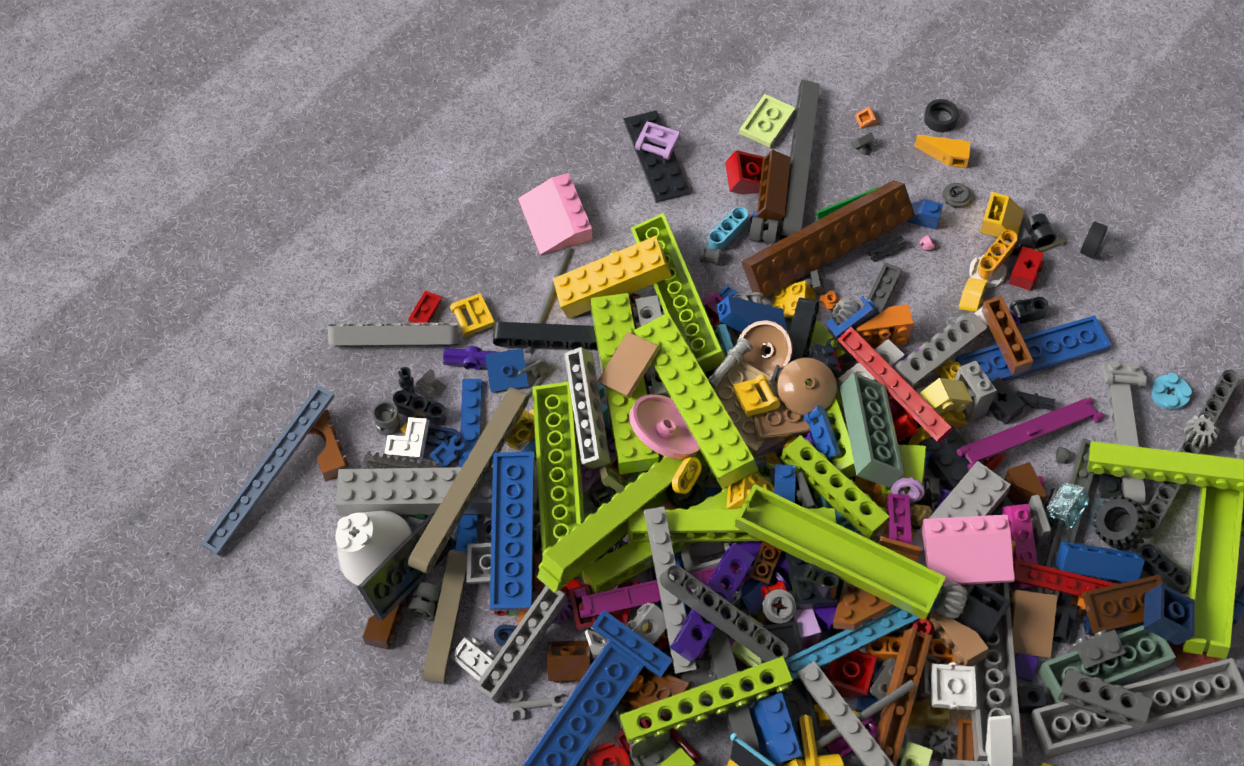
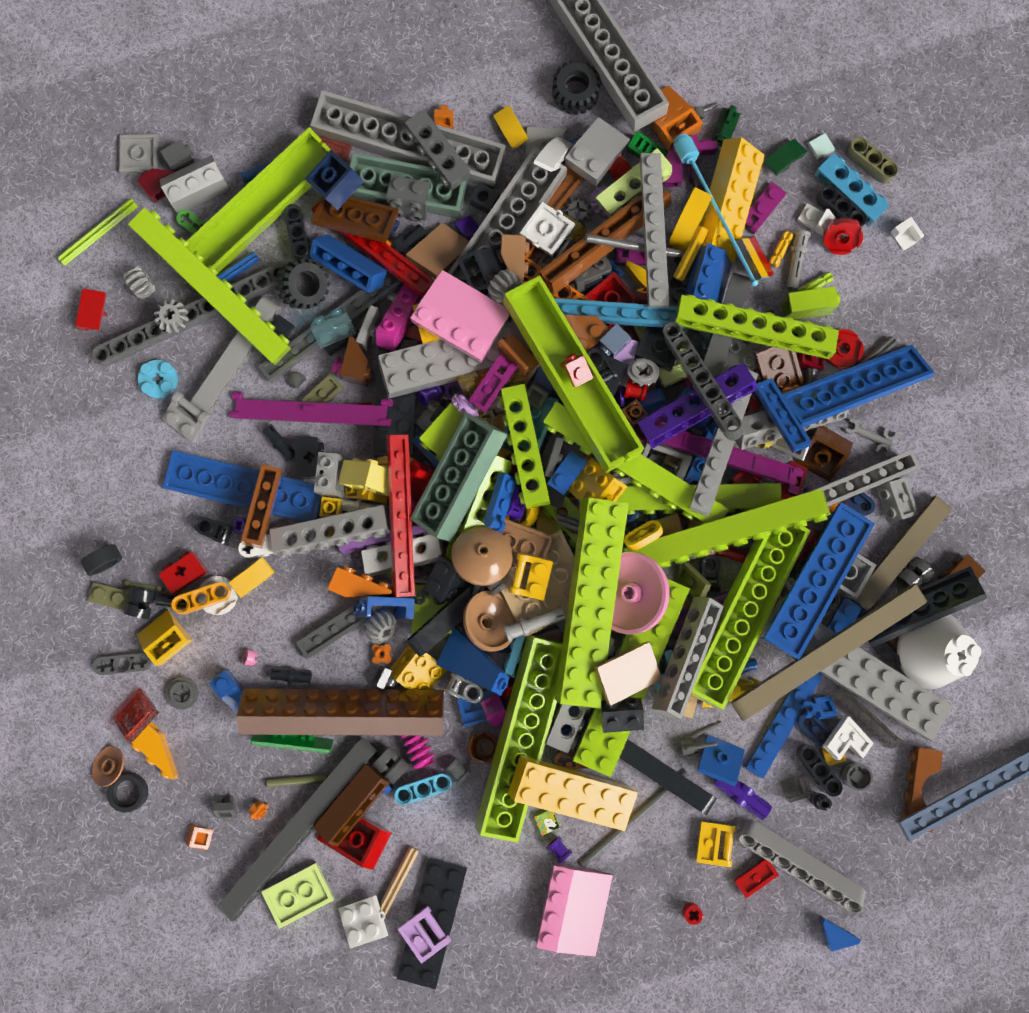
camera: 150 degrees left, 25 degrees up
(335, 304) = (837, 937): none -> blue slope
(458, 258) = (695, 908): none -> red bush
(594, 246) = (559, 849): none -> dark purple bush
(610, 337) = (623, 715): none -> black bracket
(701, 164) = (398, 879): none -> tan axle
(706, 274) = (487, 753): none -> reddish brown hair
(708, 127) = (363, 921): none -> white plate
(745, 249) = (419, 750): none -> dark pink piece
(822, 618) = (614, 341): none -> sand blue brick
(826, 187) = (296, 780): none -> olive bar
(838, 153) = (258, 810): none -> orange plate
(838, 551) = (576, 369): none -> bracket
(969, 121) = (107, 766): none -> nougat dish
(977, 159) = (135, 715): none -> clear red tile
(1019, 183) = (108, 659): none -> dark grey beam
(1033, 453) = (324, 391): none -> olive plate
(1068, 225) = (108, 596): none -> olive plate
(1126, 753) = (444, 117): none -> orange tile
(1187, 510) = (239, 267): none -> blue axle

